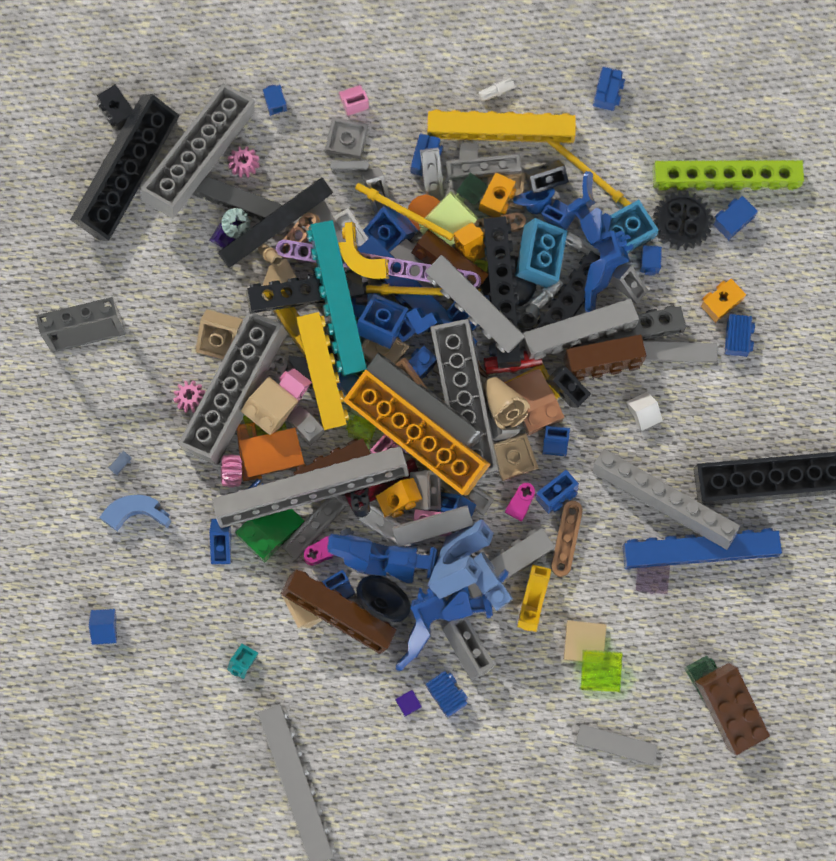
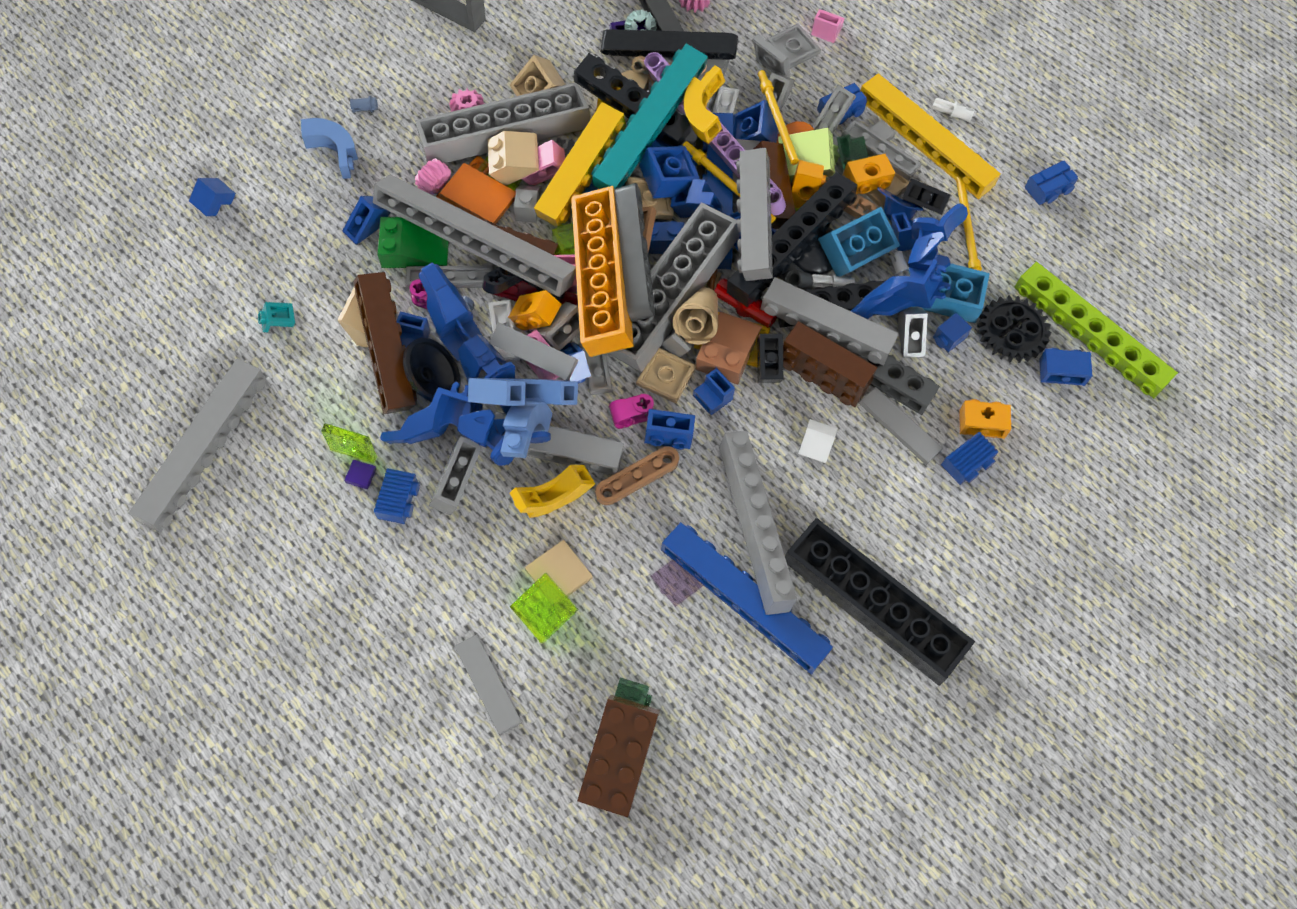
camera: 45 degrees right, 10 degrees down
(387, 692) = (349, 443): none -> clear neon green tile

